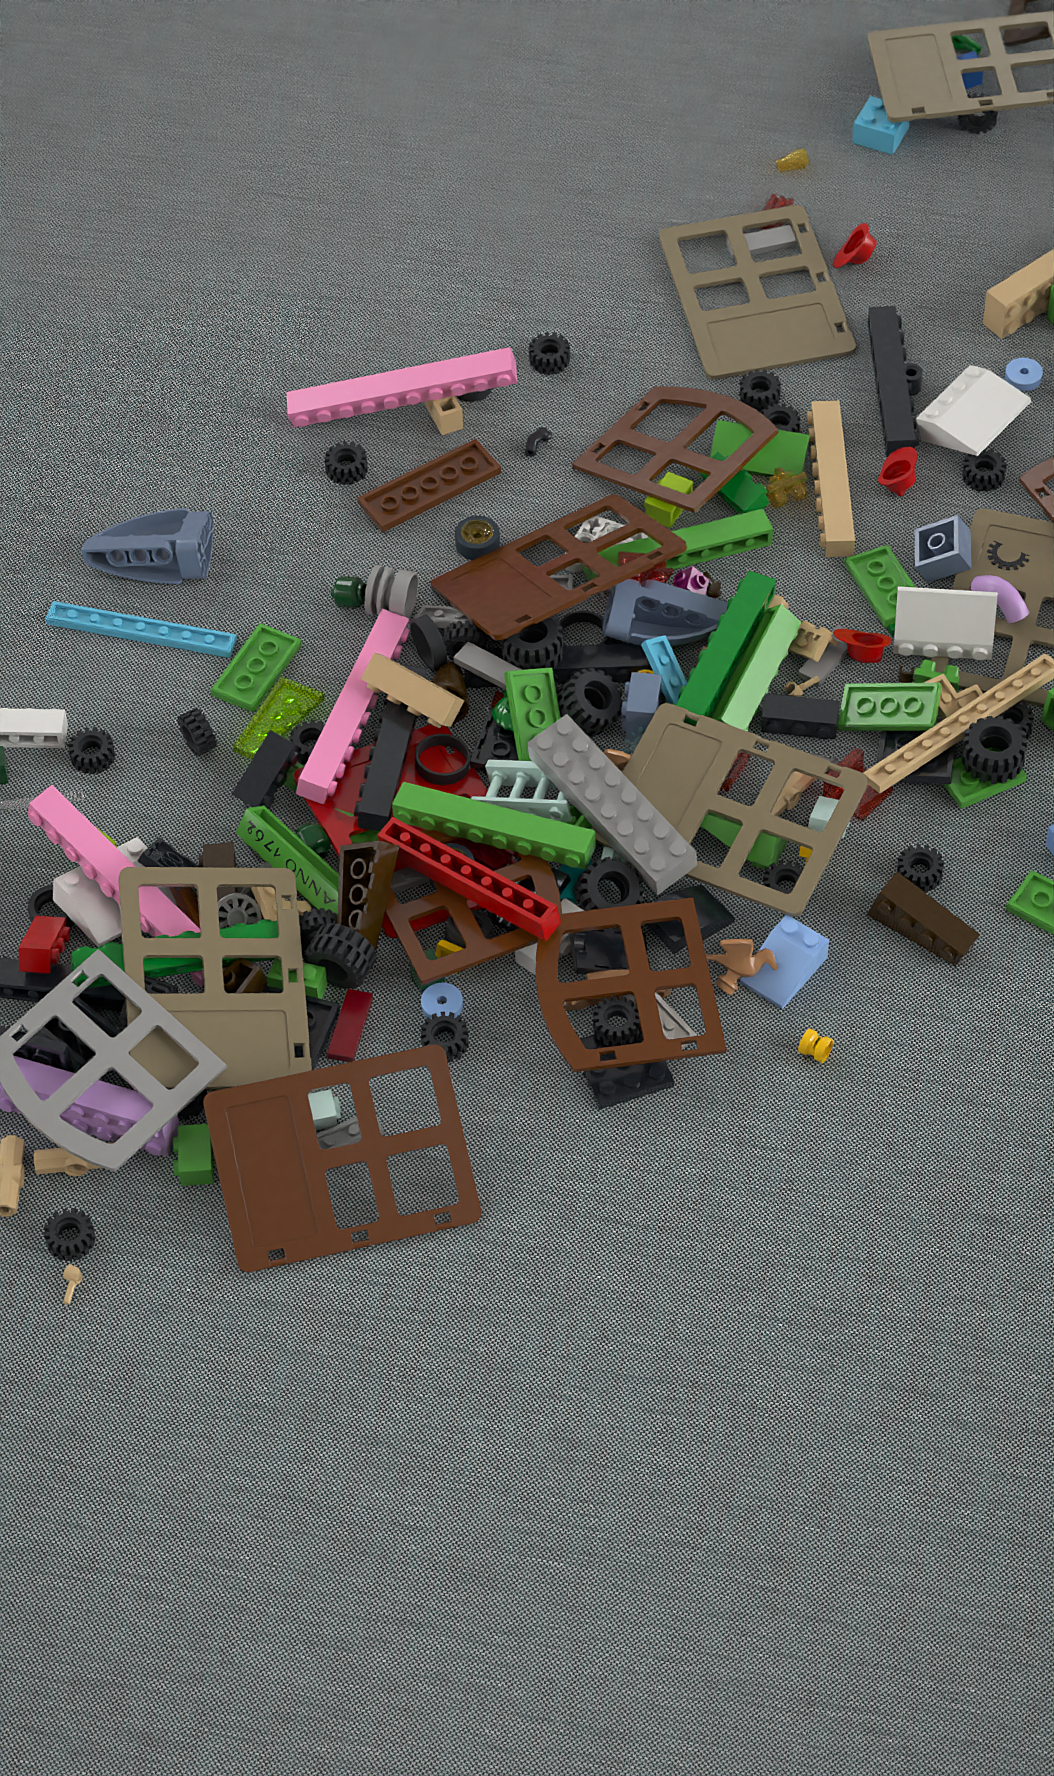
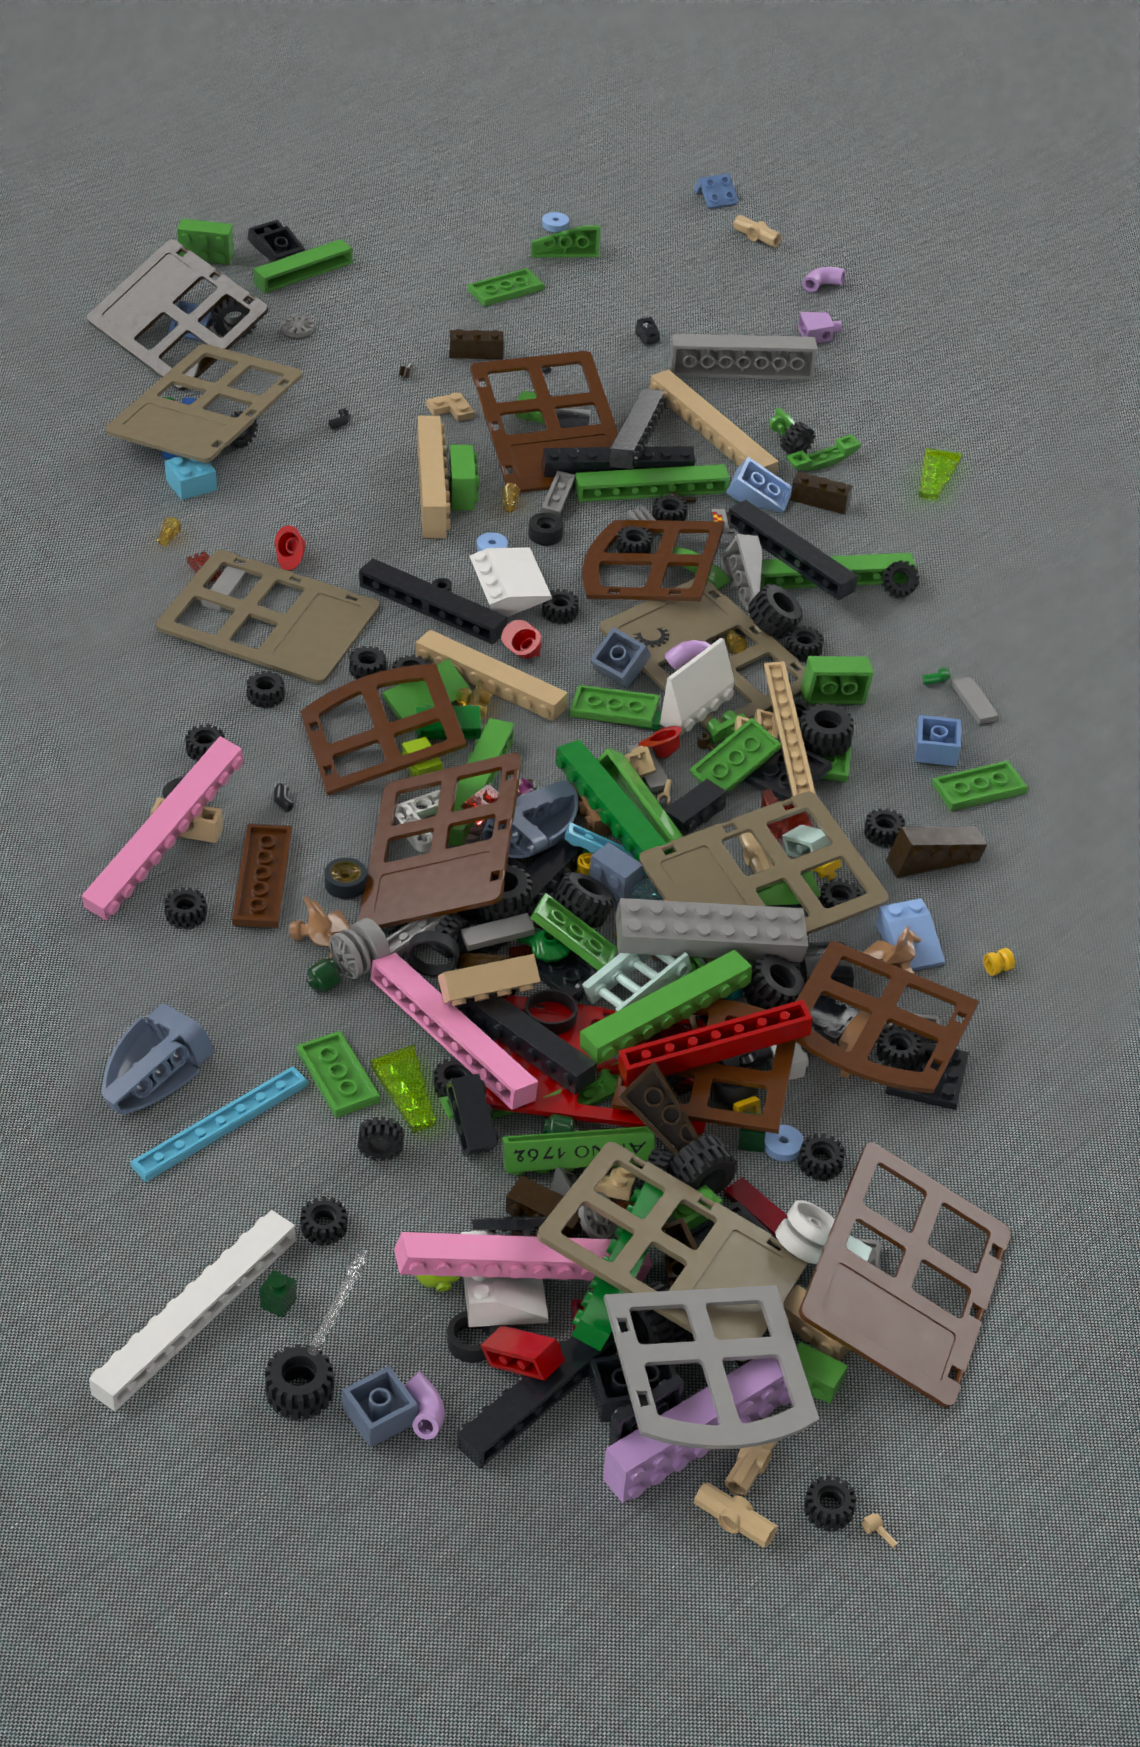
camera: 60 degrees left, 10 degrees down
(328, 1052) = (805, 1231): none -> white wheel
(399, 555) = (319, 925): none -> medium nougat animal
(655, 357) = (269, 697): none -> black tyre

